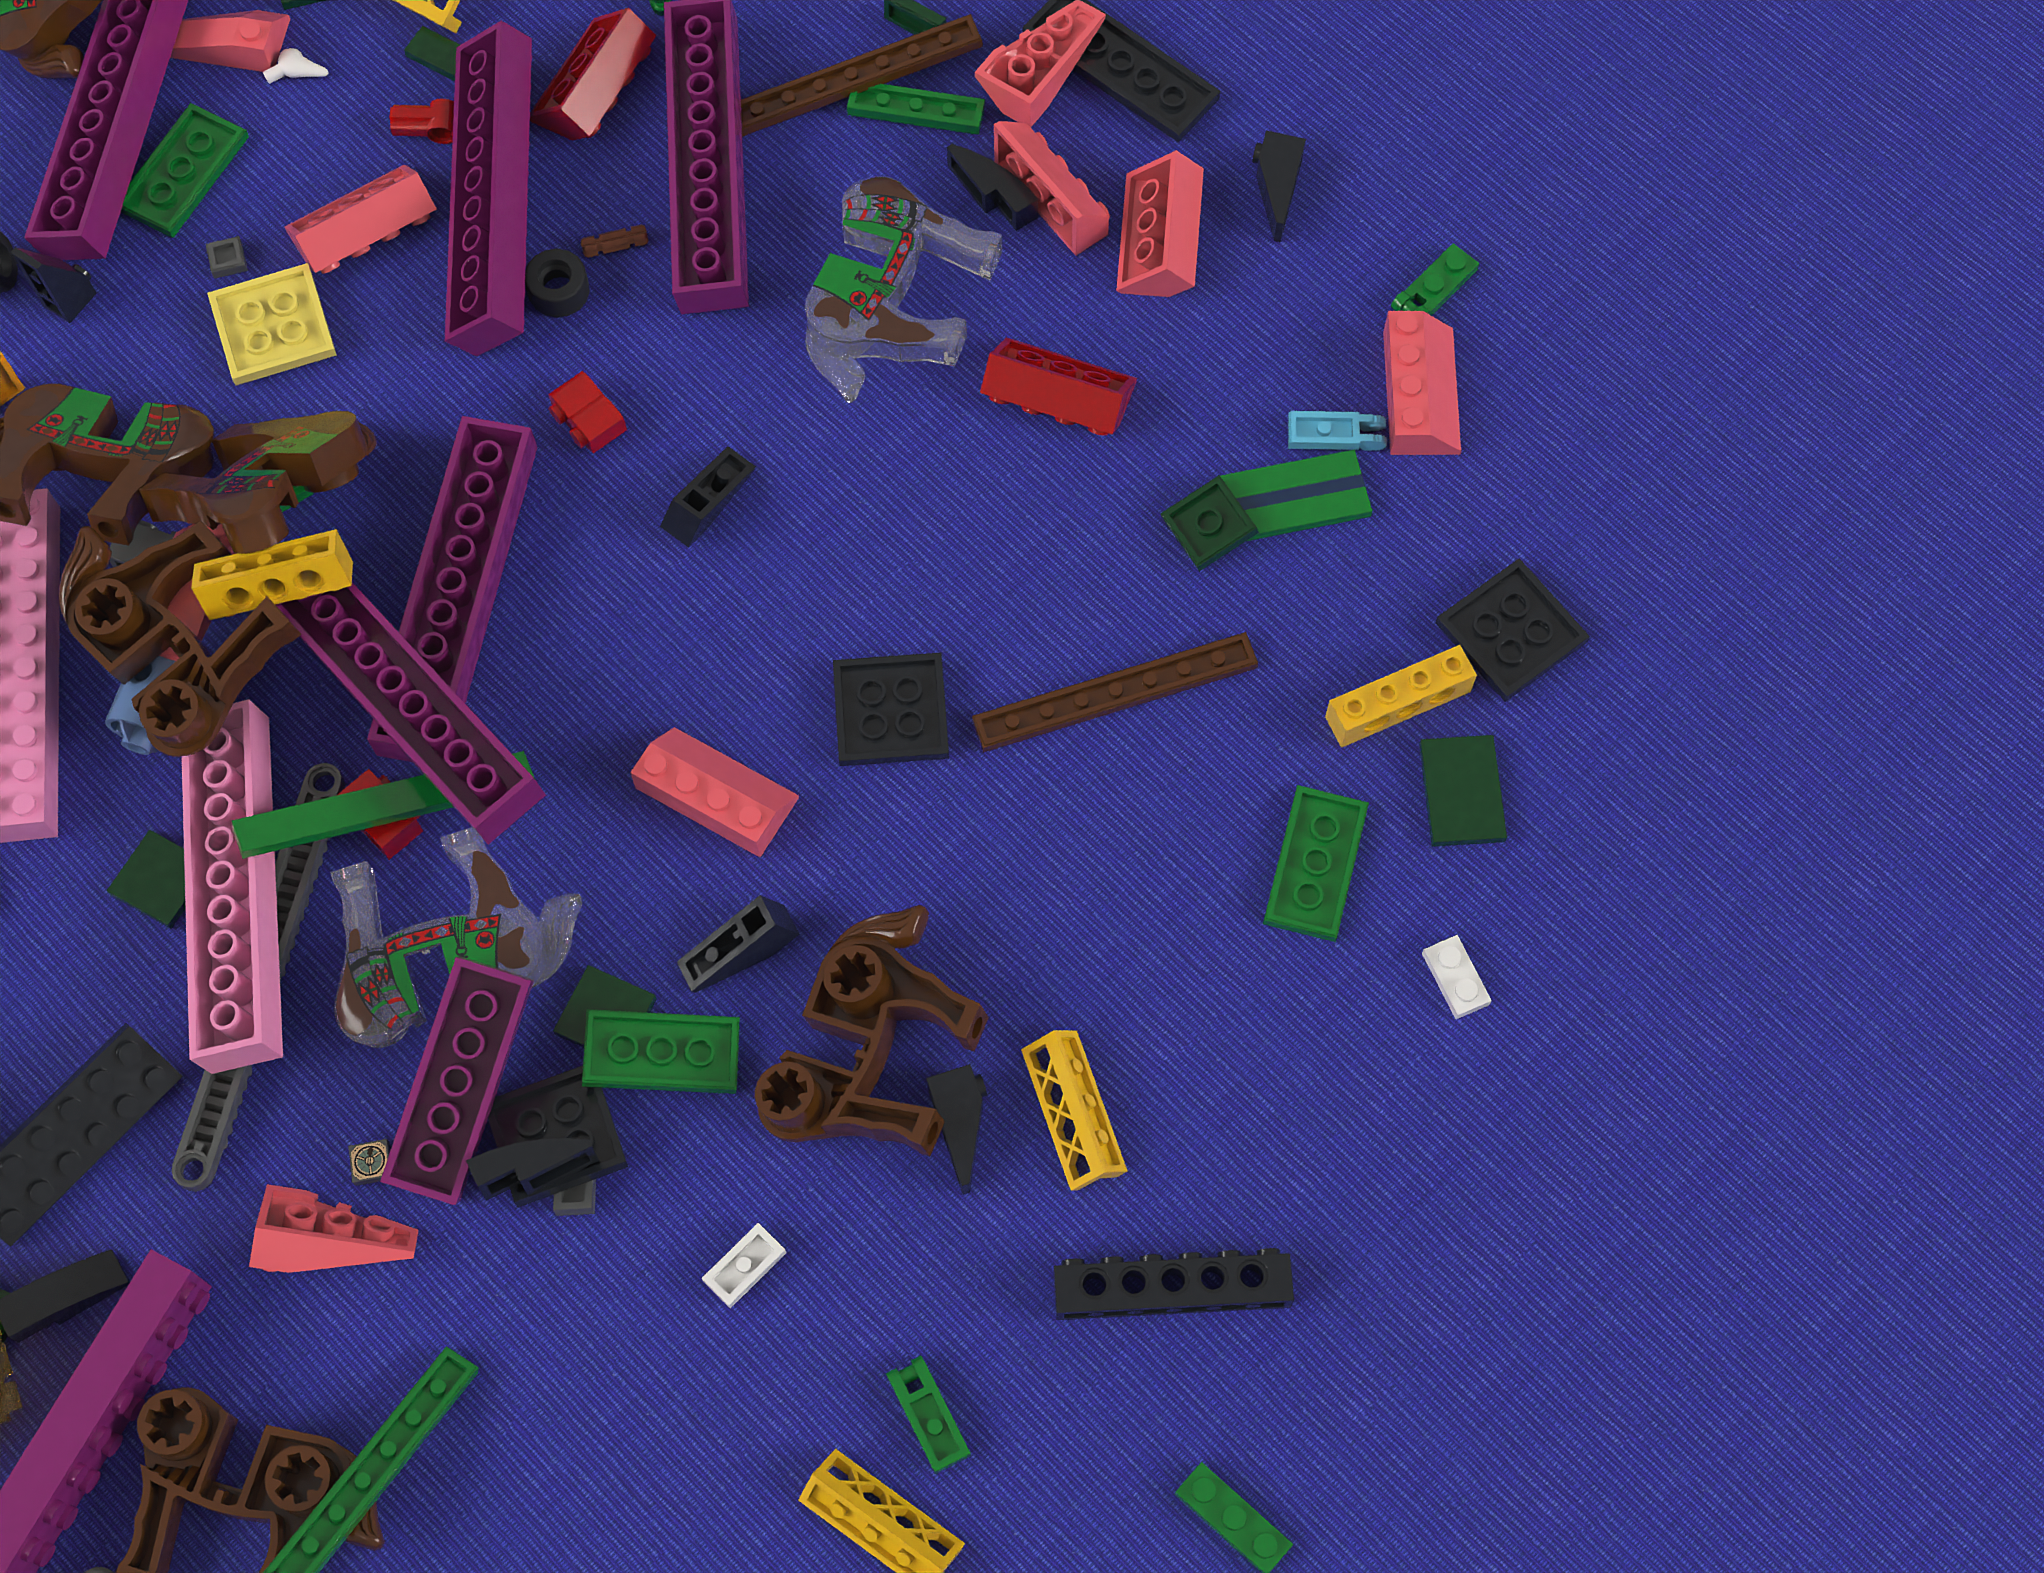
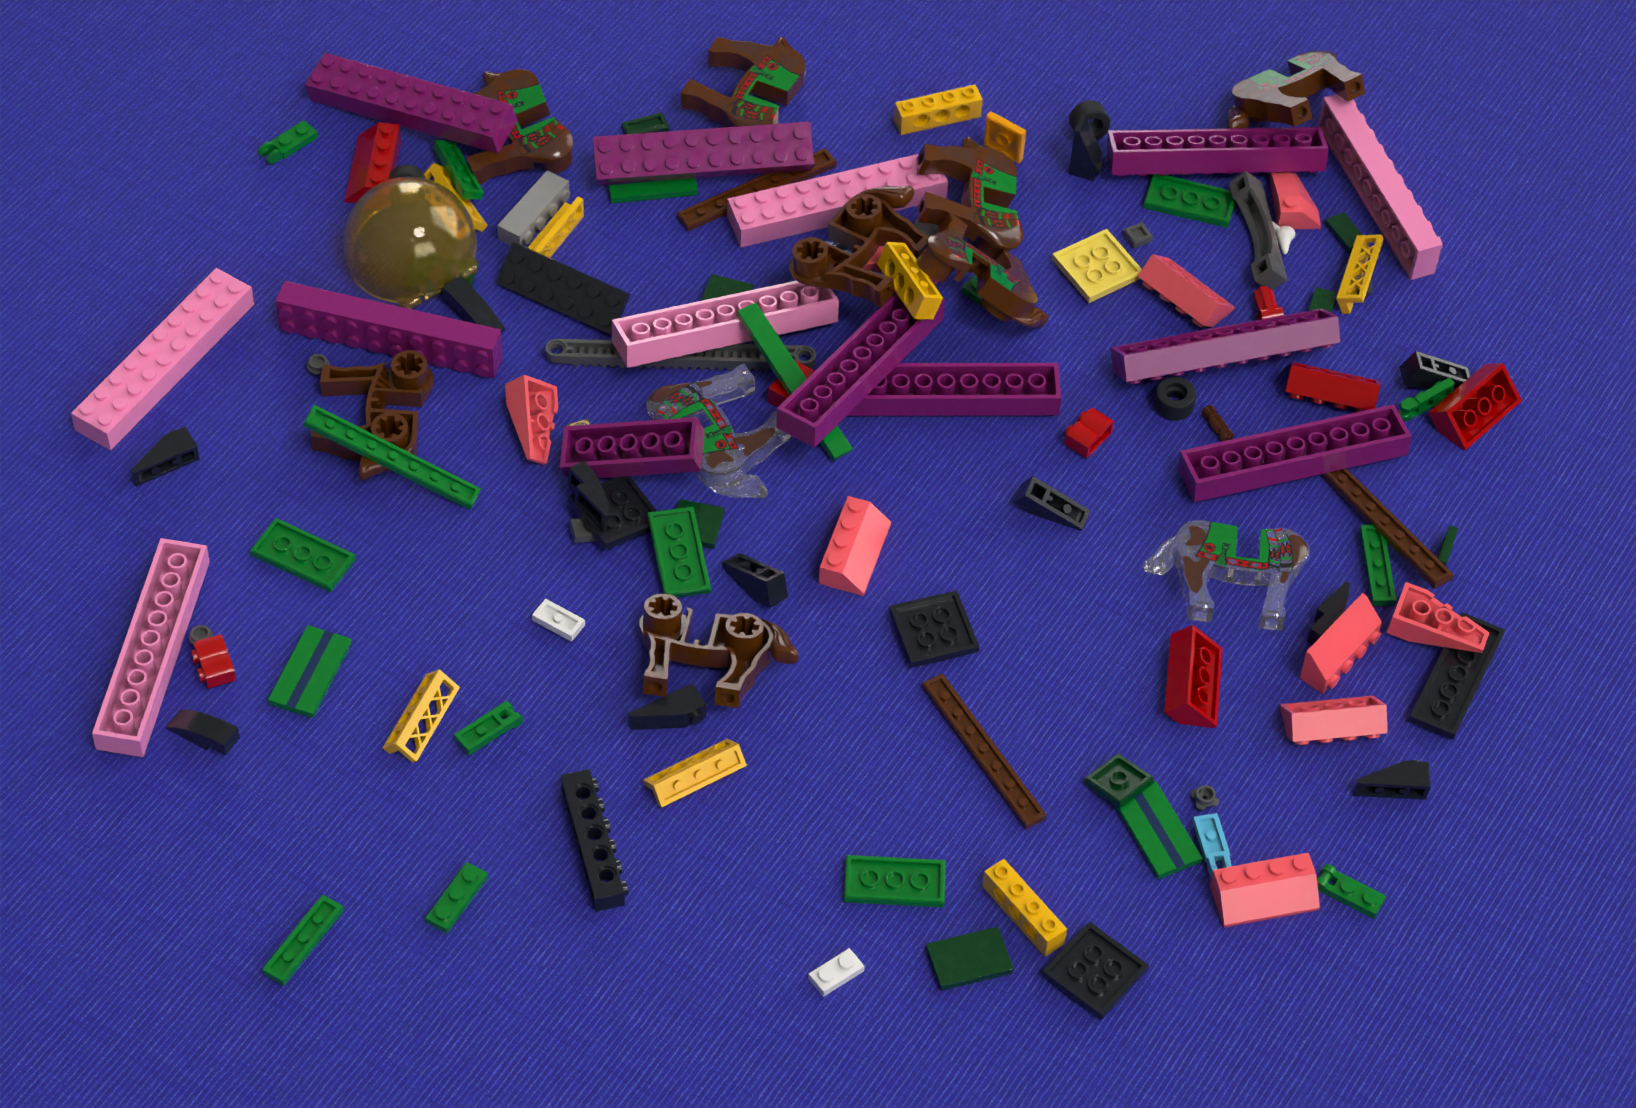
camera: 75 degrees right, 15 degrees down
(233, 86) = (1268, 263): none -> dark grey arch
(1254, 413) = (1204, 791): none -> dark grey plate

